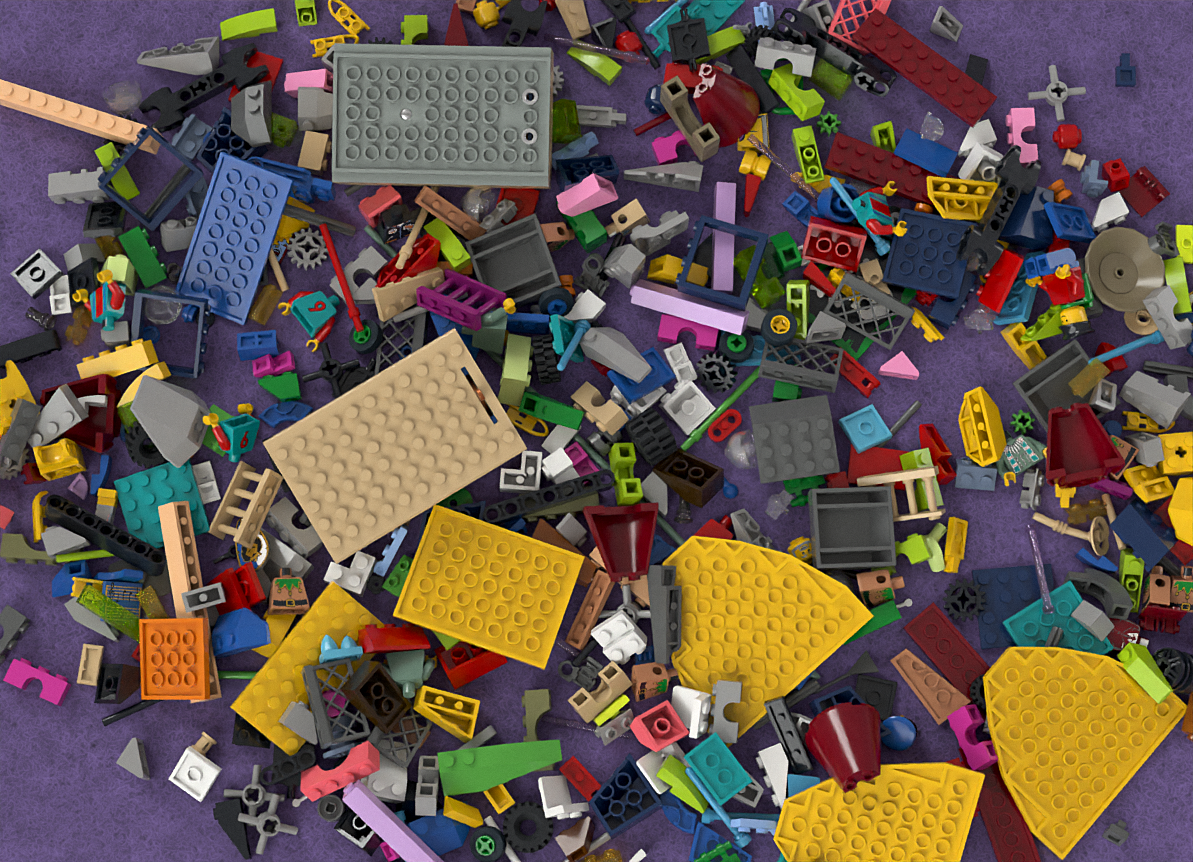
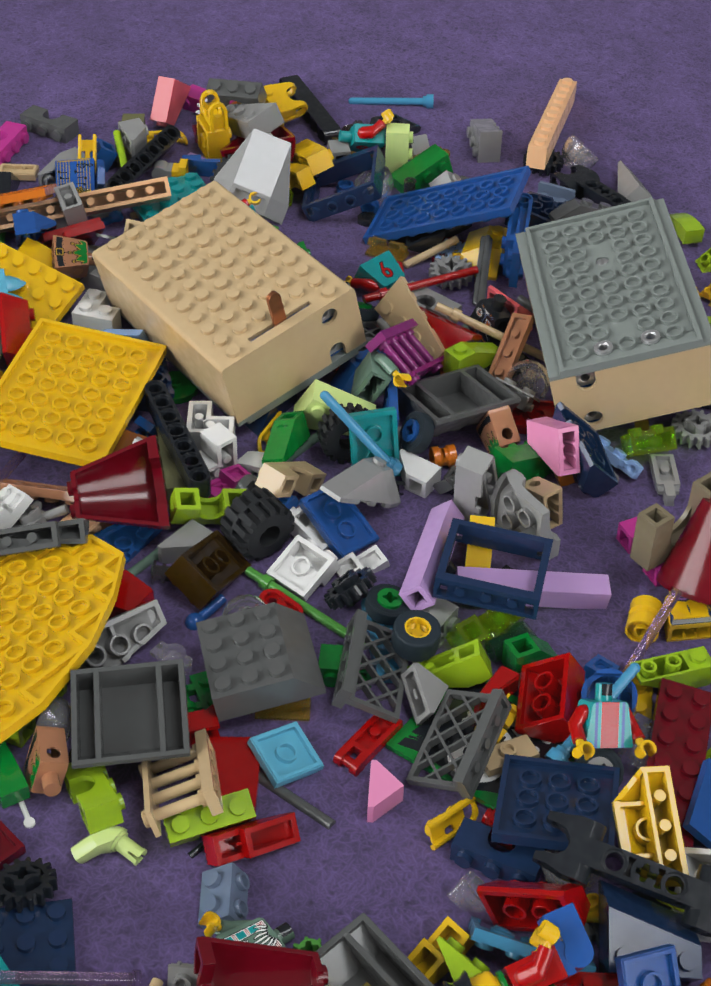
camera: 85 degrees right, 35 degrees down
(104, 220) = (453, 146): black plate -> none
(110, 612) = (63, 157): clear neon green plate -> none
(121, 180) = (506, 151): lime slope -> none
(171, 201) = (485, 124): dark blue window -> none
(257, 344) = (341, 245): blue hinge -> none
(273, 366) = (324, 256): dark pink slope -> none
(672, 326) = (400, 551): dark pink arch -> none
(676, 175) = (609, 544): light grey wedge -> none
(752, 186) = (609, 619): red slope -> none
(955, 544) = (115, 872): yellow hinge -> none
(981, 427) = (294, 894): yellow wedge -> none

